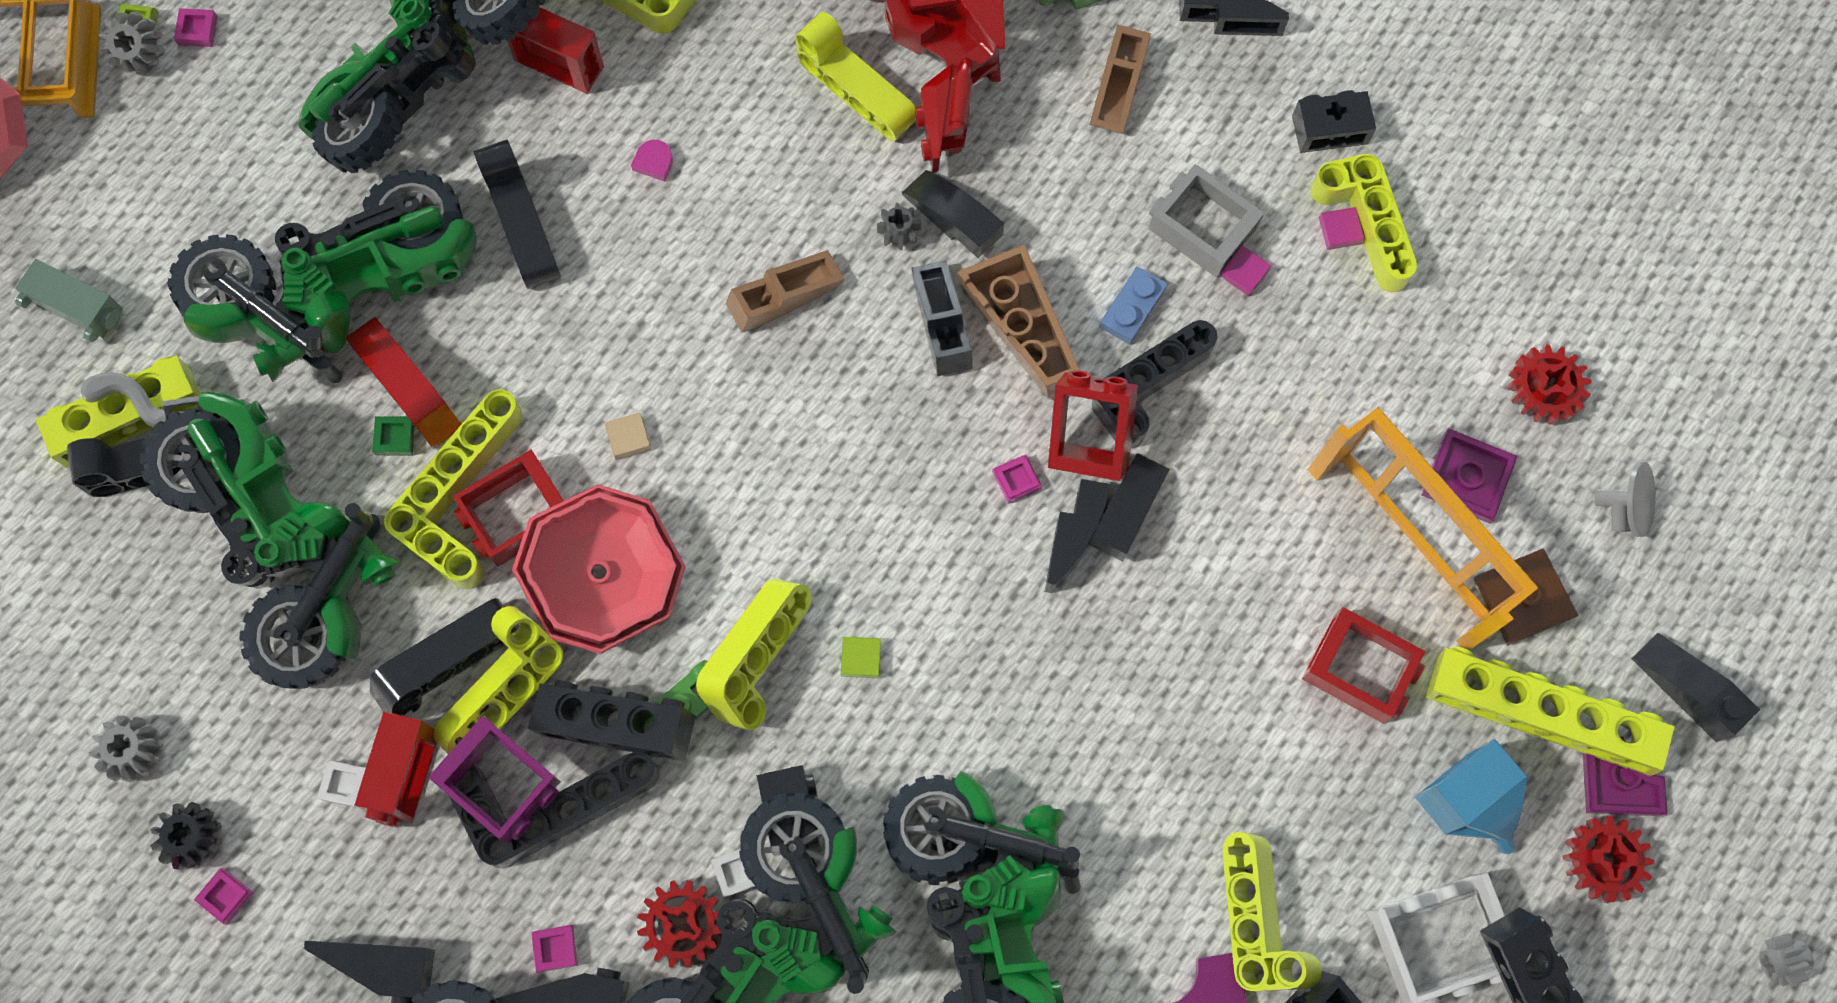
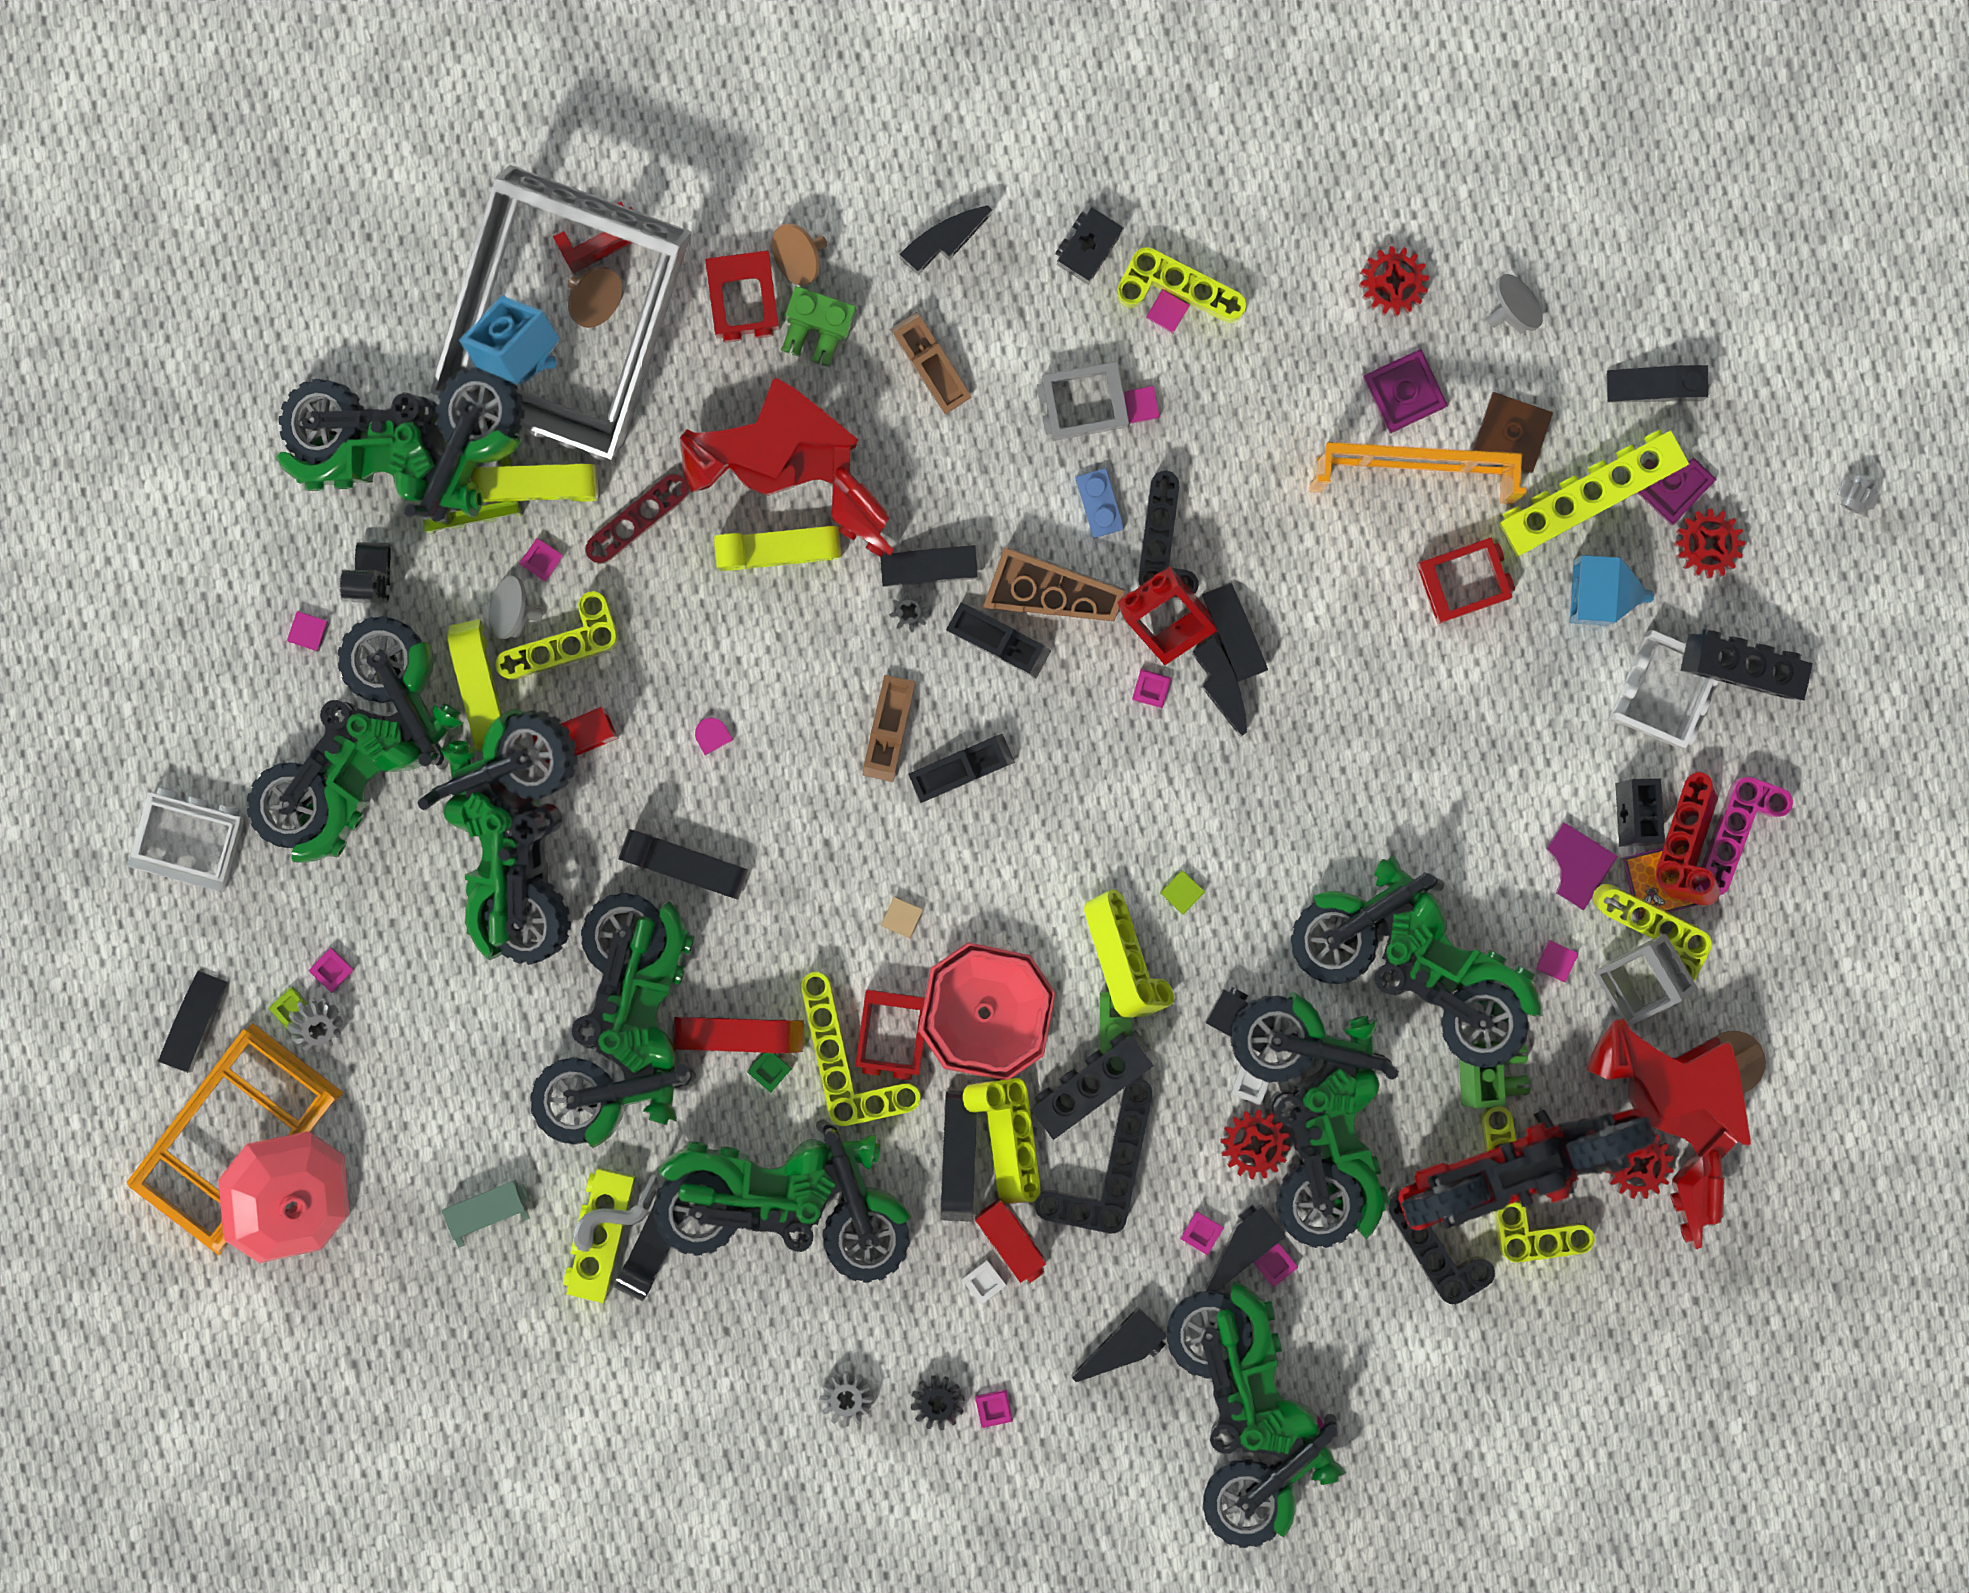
camera: 45 degrees left, 15 degrees up
(467, 753) = (1108, 1166): magenta window -> none
(805, 376) = (961, 768): none -> black slope
(1263, 911) = (1557, 786): neon yellow beam -> none

